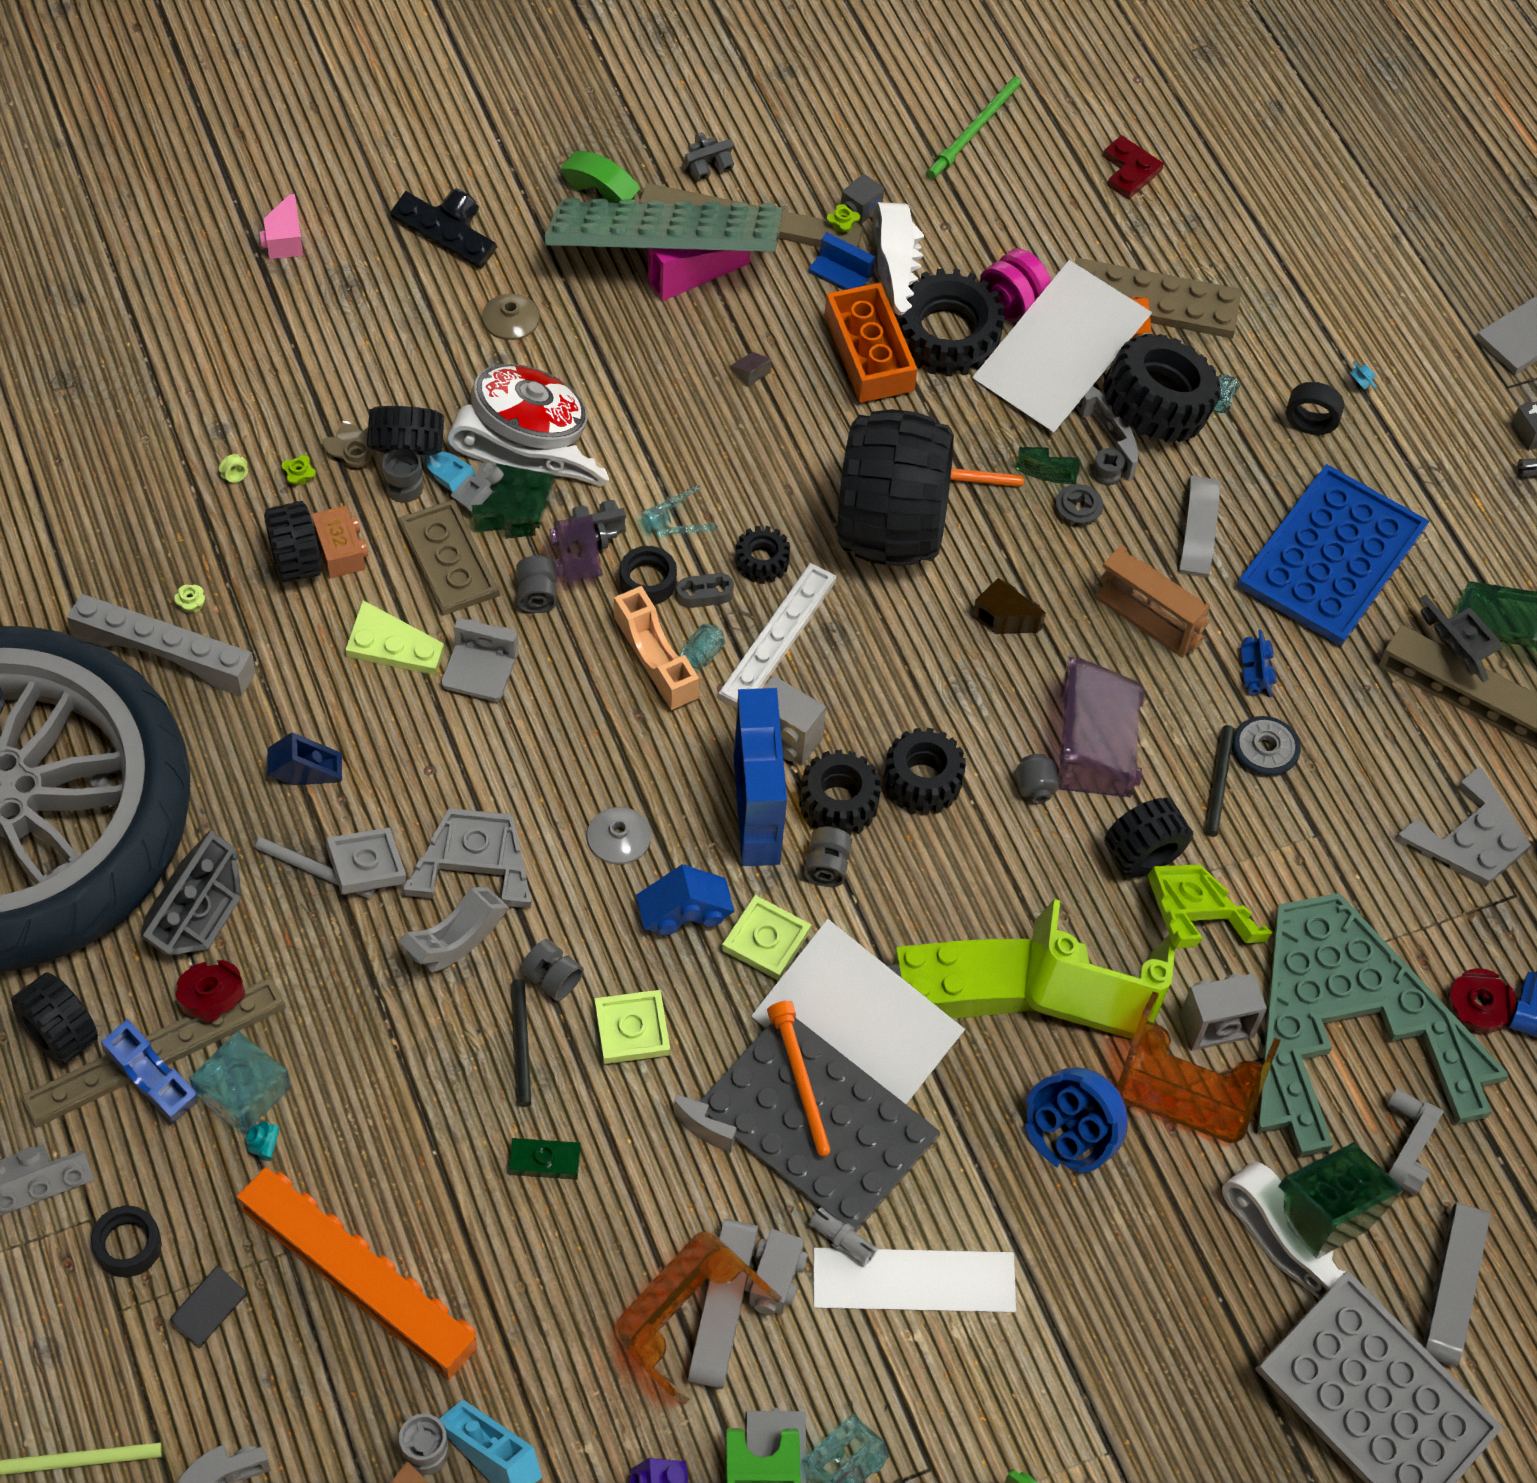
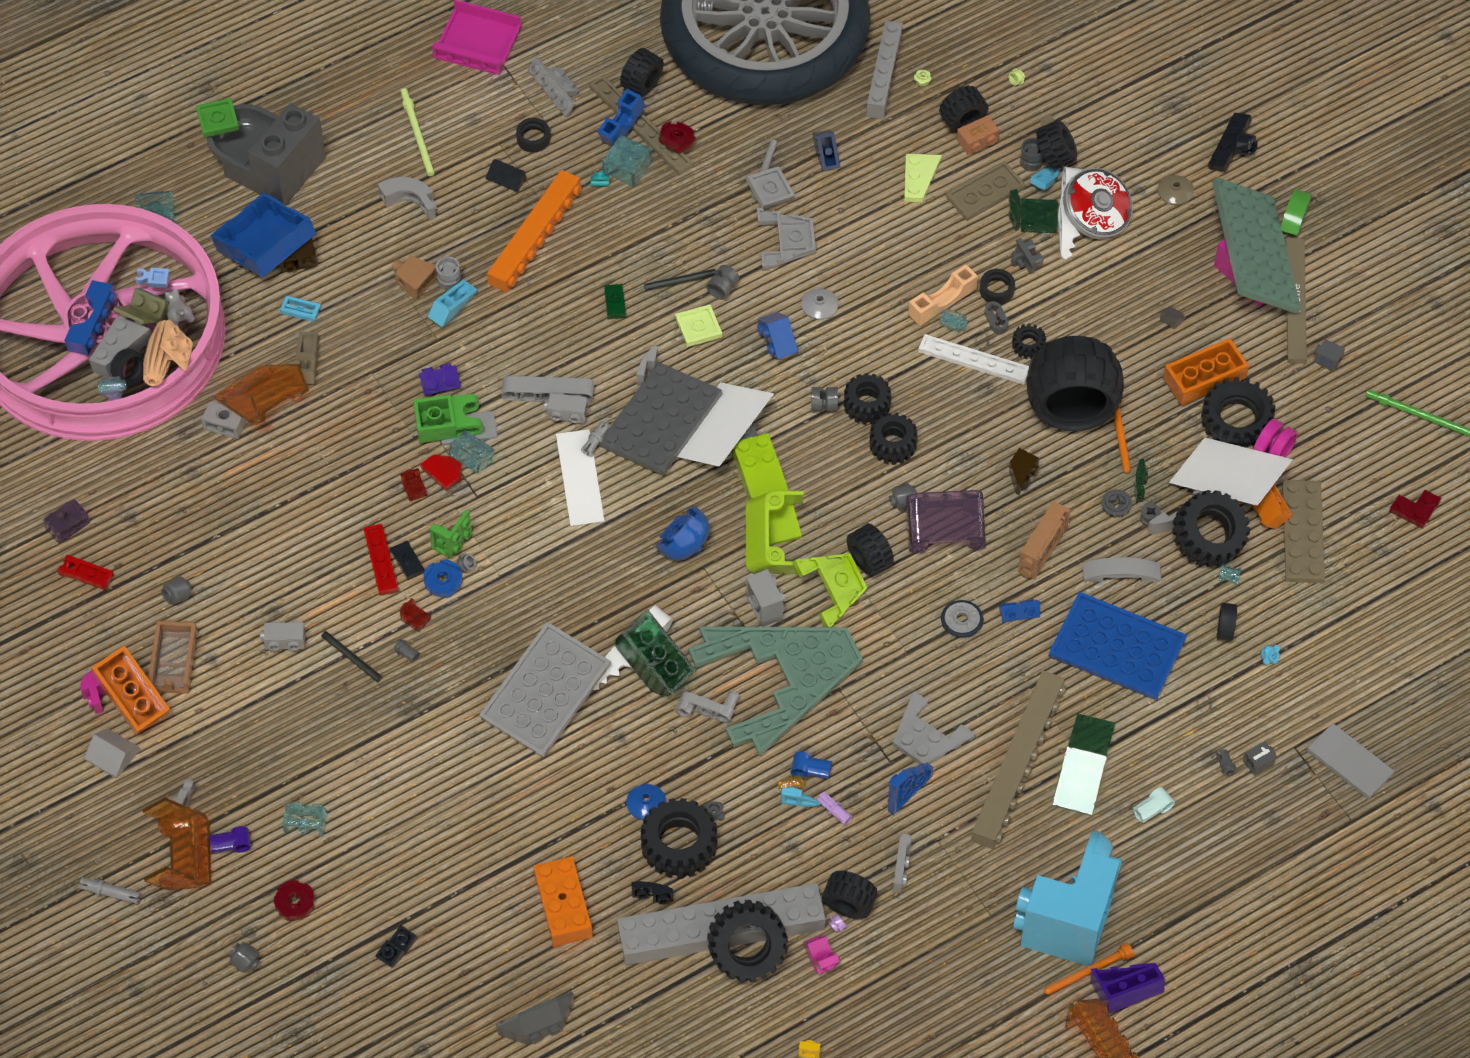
camera: 85 degrees right, 0 degrees up
(195, 899) = (725, 118): dark grey wedge -> none
(282, 230) = (1201, 62): bright pink slope -> none
(301, 476) = (1025, 112): lime plate -> none
(458, 933) = (731, 235): light grey arch -> none
(476, 489) = (1033, 191): light grey plate -> none
(481, 659) = (913, 217): light grey bracket -> none
(536, 584) = (972, 232): dark grey wheel -> none
(583, 533) = (1000, 244): clear purple brick -> none
(640, 1323) = (559, 369): clear orange windscreen -> none
(658, 516) = (1040, 285): clear light blue plant -> none
(705, 152) = (1338, 265): dark grey hips -> none
(759, 777) = (854, 345): blue tile -> none
(766, 937) = (768, 377): yellowish green plate -> none
(783, 1015) = (710, 385): orange piece -> none
(800, 721) = (906, 363): light grey brick -> none
(842, 263) = (1269, 353): blue panel -> none
(843, 218) = (1305, 349): lime plate -> none
(896, 251) = (1287, 375): white animal -> none
(1188, 1091) = (719, 582): clear orange windscreen -> none
(1219, 781) = (930, 595): pearl dark grey bar -> none
(1456, 1283) = (623, 730): light grey beam -> none
(1466, 636) = (1059, 708): dark grey bracket -> none
(1472, 1015) = (812, 730): dark red plate -> none

